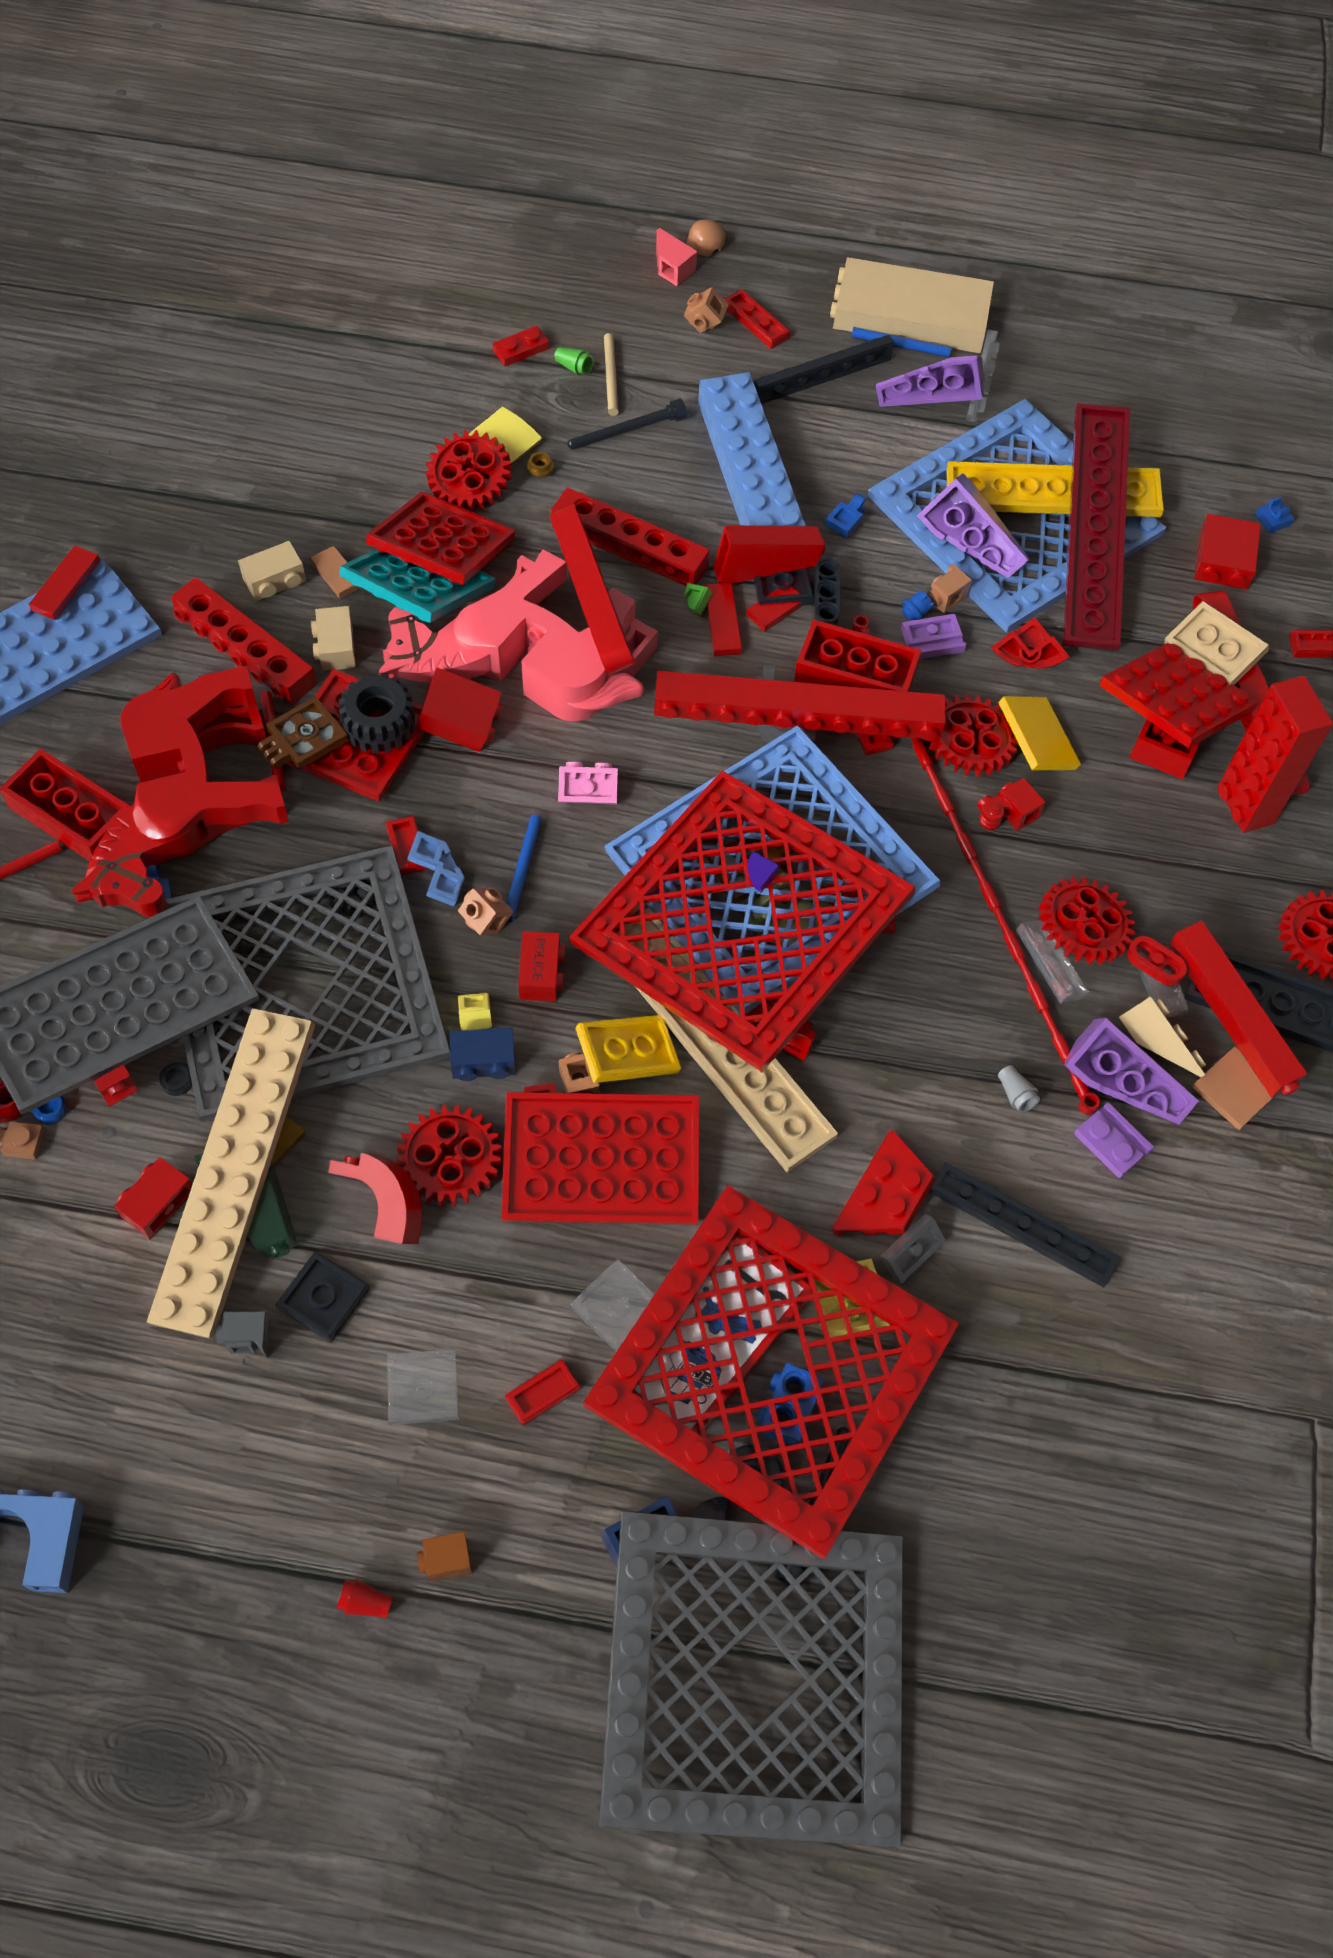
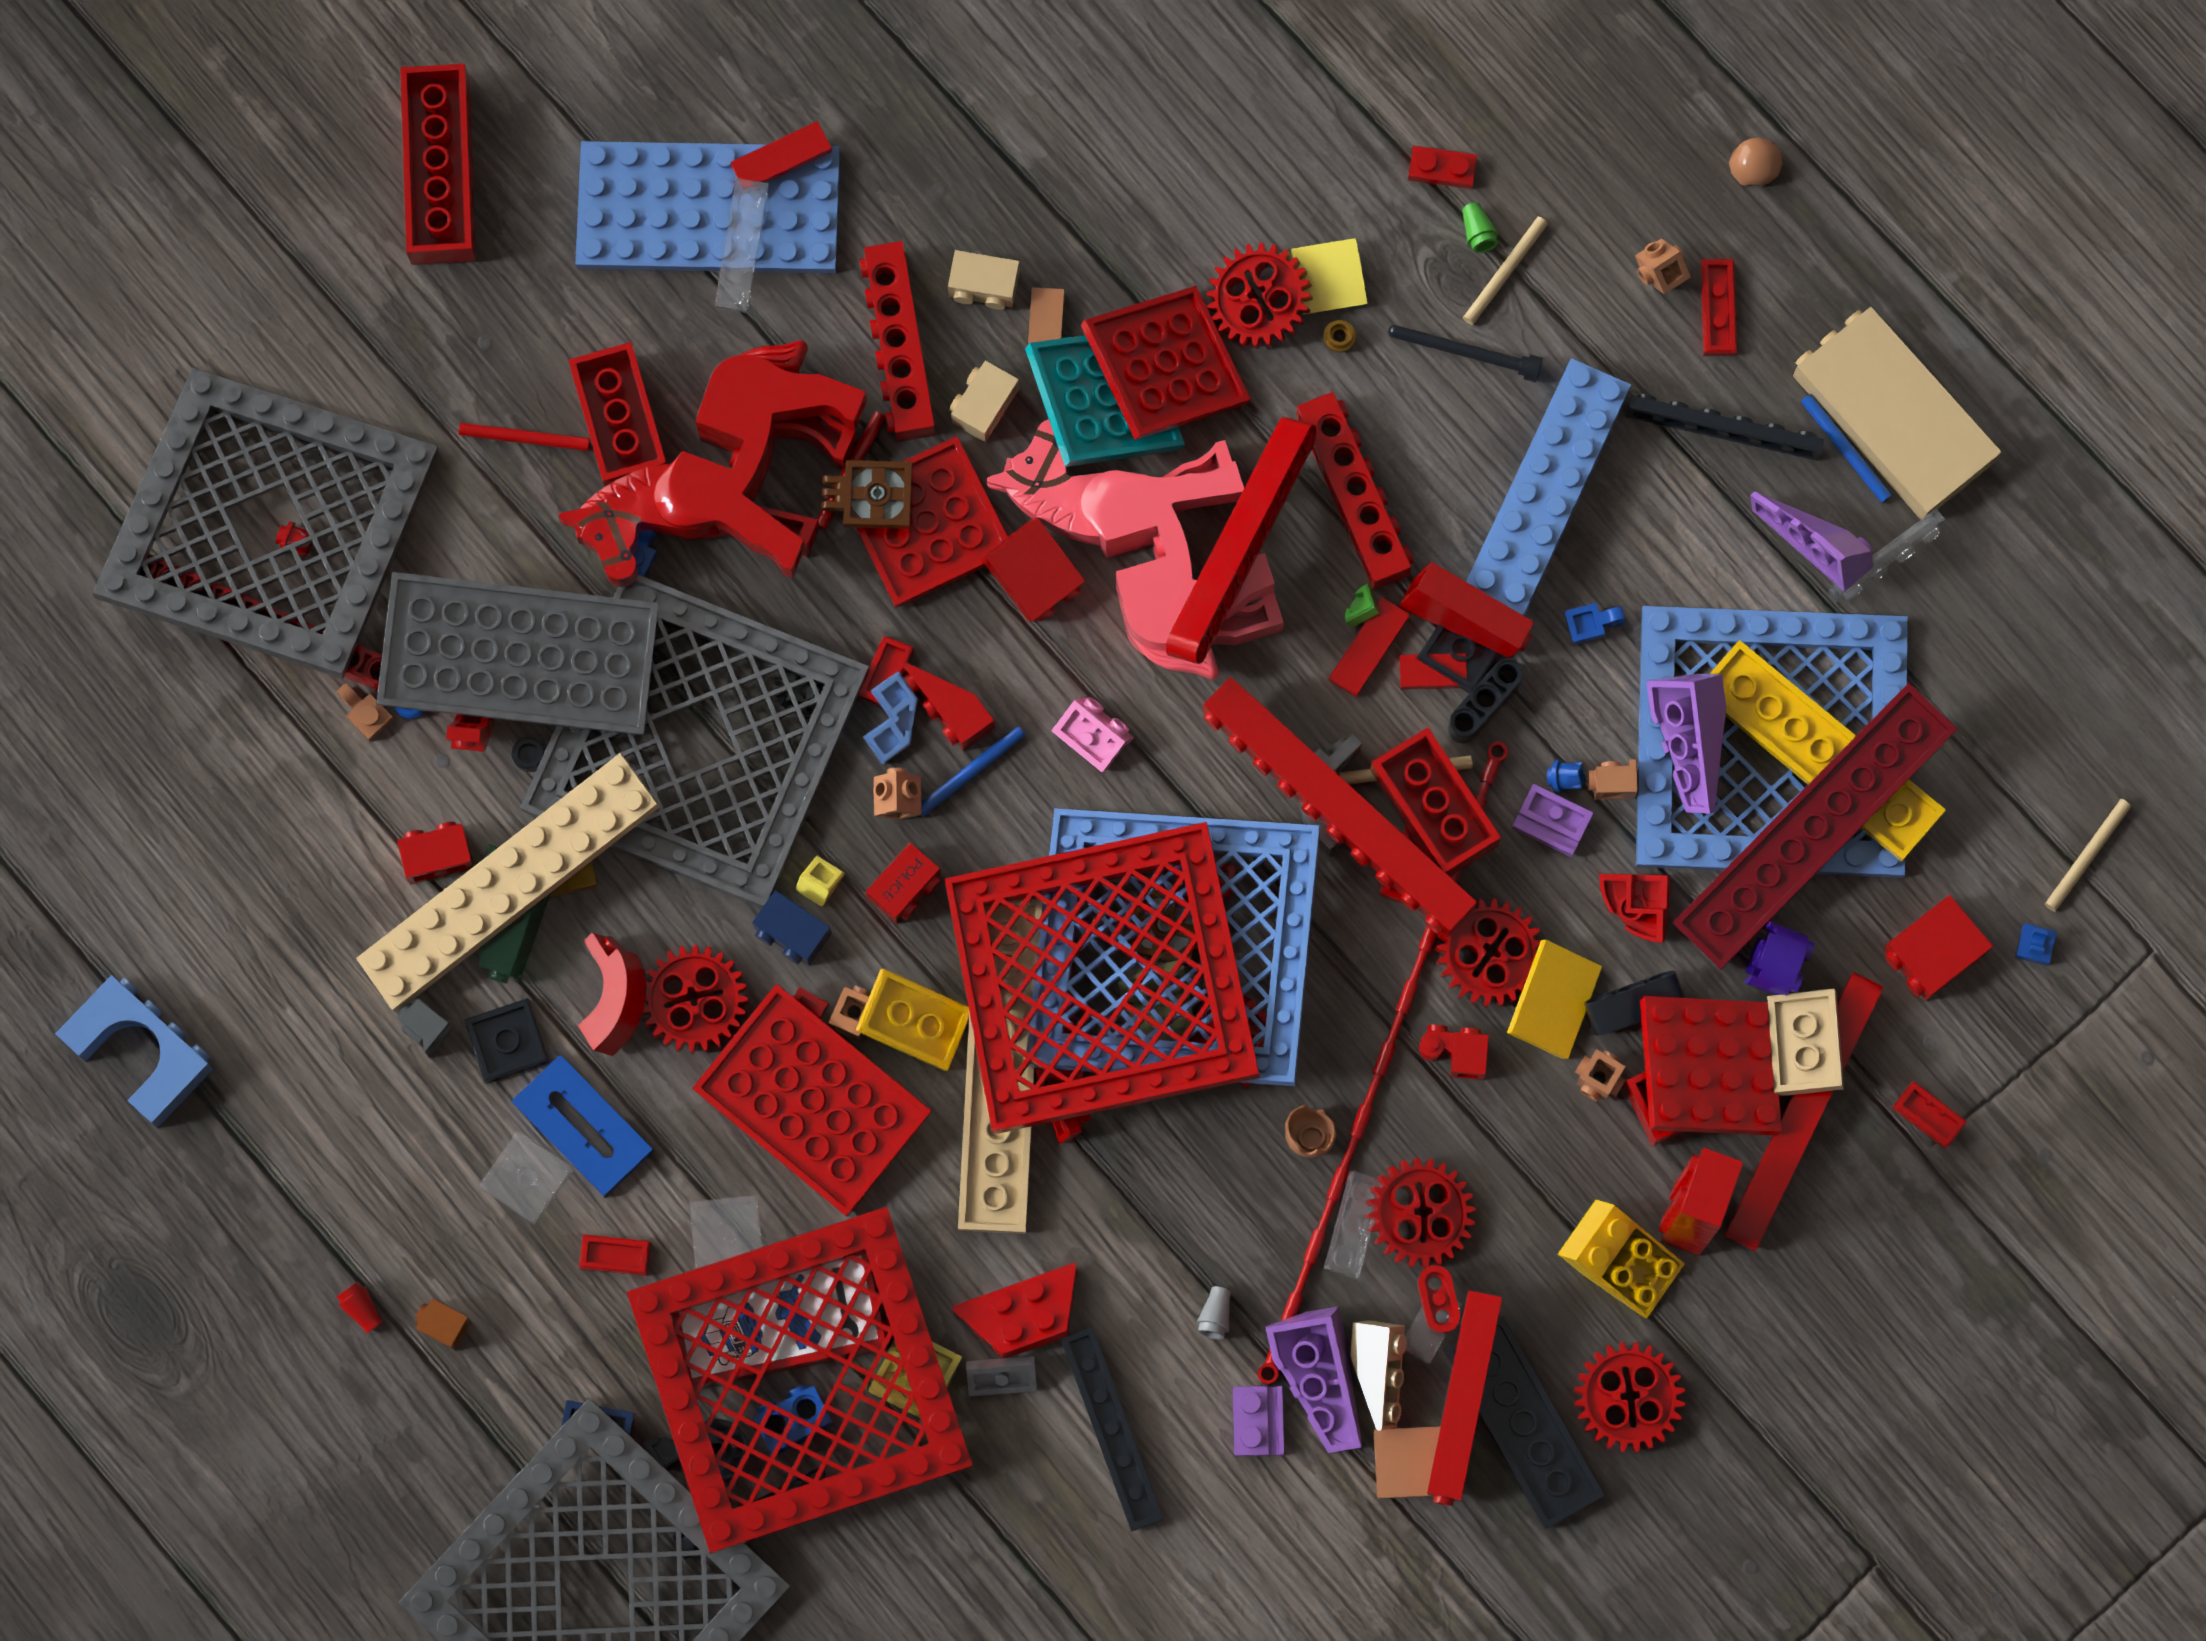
camera: 45 degrees right, 15 degrees up
(78, 646) = (741, 245): none -> clear plate
(372, 695) = (946, 498): black tyre -> none
(474, 831) = (956, 708): none -> red slope
(474, 1338) = (601, 1172): none -> blue piece
(674, 258) = (1691, 167): coral slope -> none
(761, 871) = (1145, 952): dark purple tile -> none
(967, 923) = (1309, 1132): none -> nougat hair
(1086, 703) = (1622, 1006): none -> black beam
(1113, 754) = (1609, 1067): none -> nougat brick
(1149, 614) = (1778, 959): none -> dark purple brick
(1232, 854) = (1621, 1257): none -> yellow slope
(1251, 454) = (2087, 855): none -> tan bar

